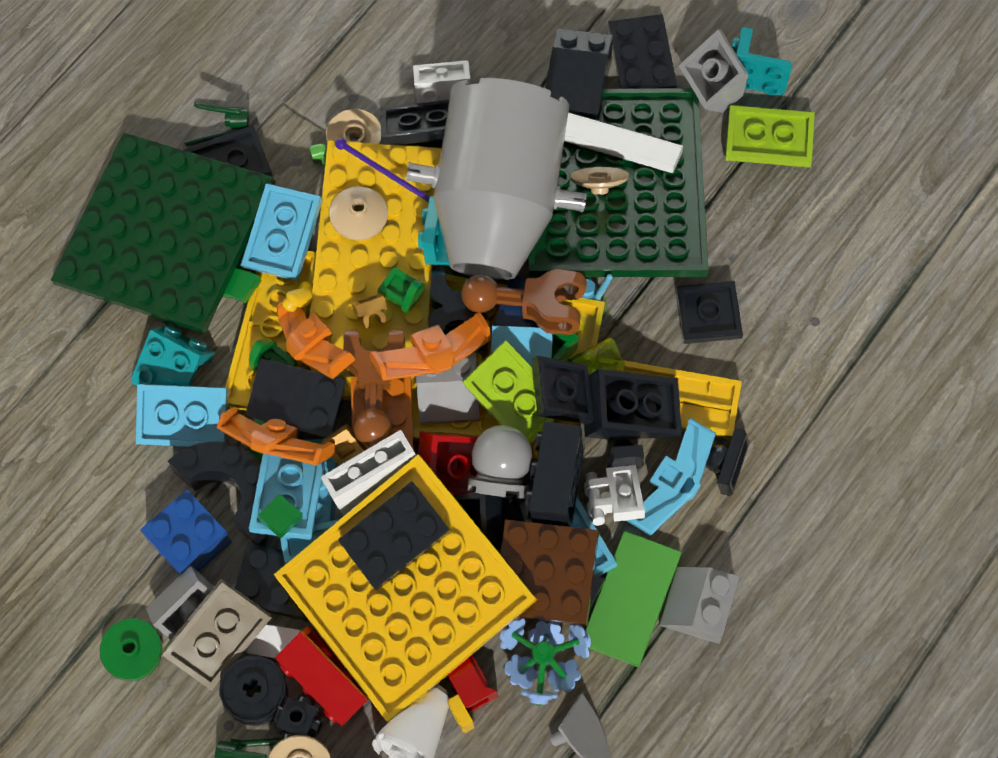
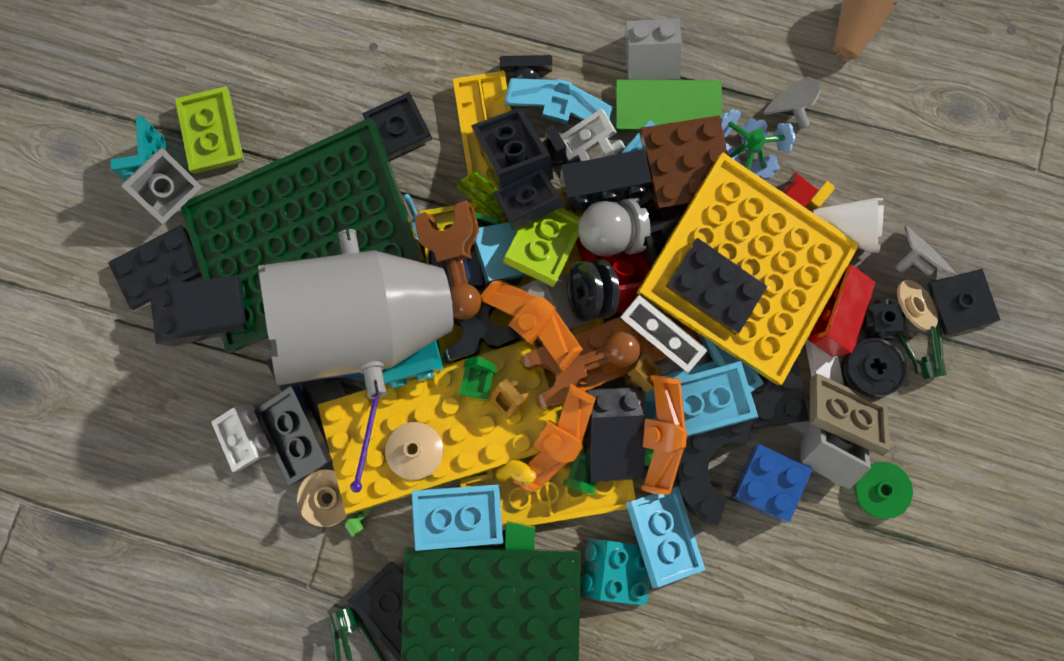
camera: 110 degrees left, 10 degrees up
(280, 516) = (738, 391): green tile -> none
(442, 419) = (593, 290): none -> black wheel
(599, 178) = (308, 237): tan dish -> none
(622, 143) = (260, 251): white tile -> none

